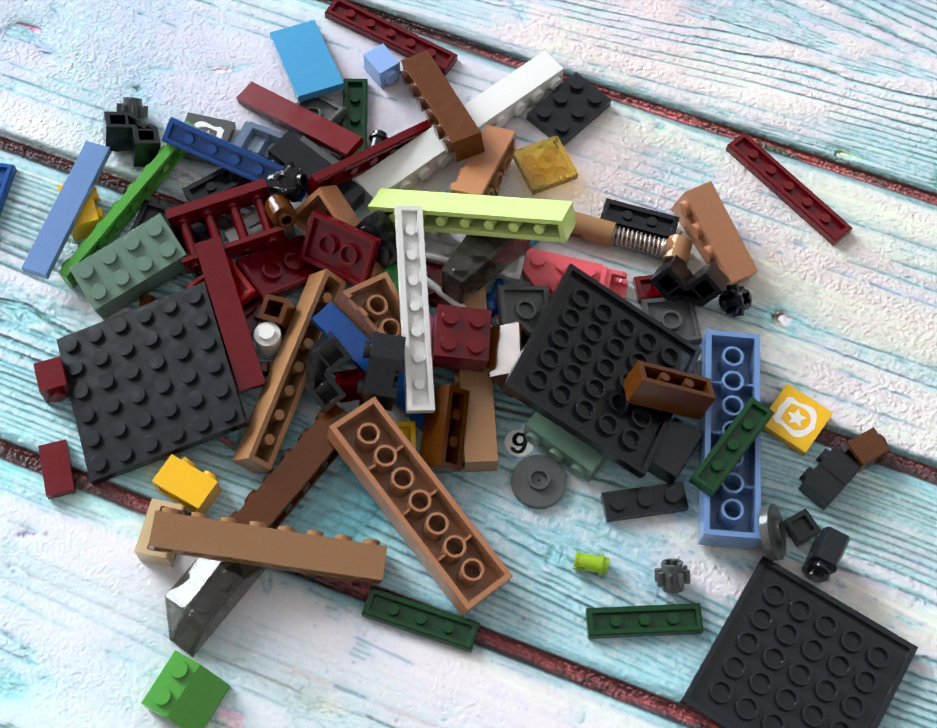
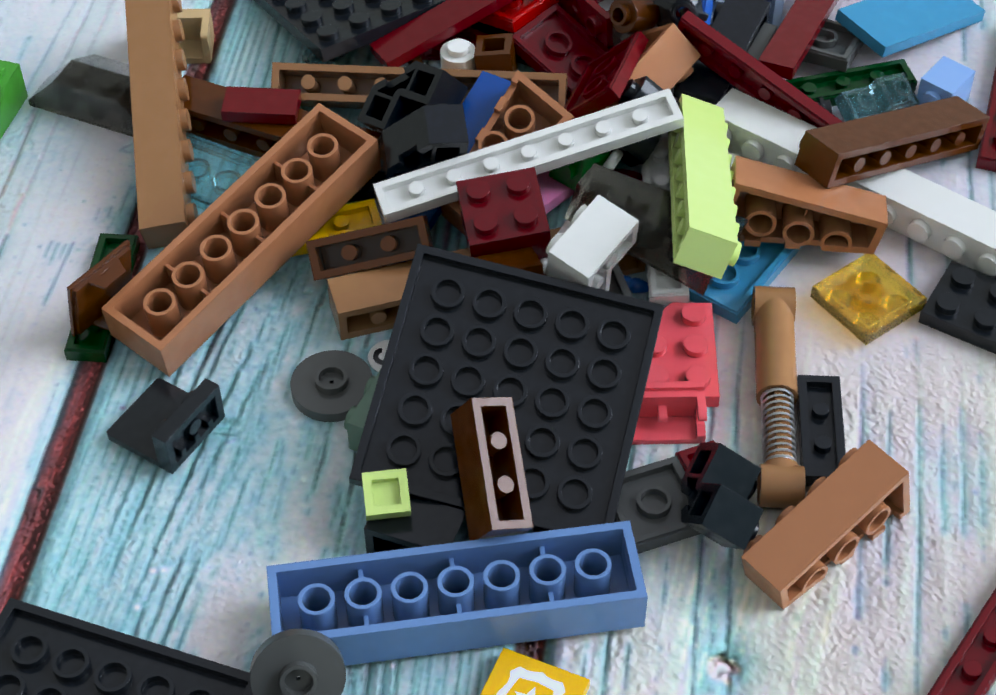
camera: 80 degrees right, 15 degrees down
(187, 485) = (240, 43): yellow brick -> none
(283, 475) = (261, 105): none -> dark red tile
(378, 105) = (880, 96): none -> clear light blue slope
(449, 604) = (97, 287): none -> reddish brown piece
(521, 289) = (592, 244): none -> white brick
(554, 586) = (169, 422): none -> black bracket
(591, 563) = (212, 470): lime pin -> none
(644, 501) = (326, 509): black plate -> none
(644, 621) = (136, 547): dark green tile -> none
(662, 456) = (386, 494): none -> yellowish green tile
(672, 575) = (205, 558): dark grey gear -> none
(731, 447) = (423, 578): dark green tile -> none
(735, 300) = (727, 584): black gear -> none

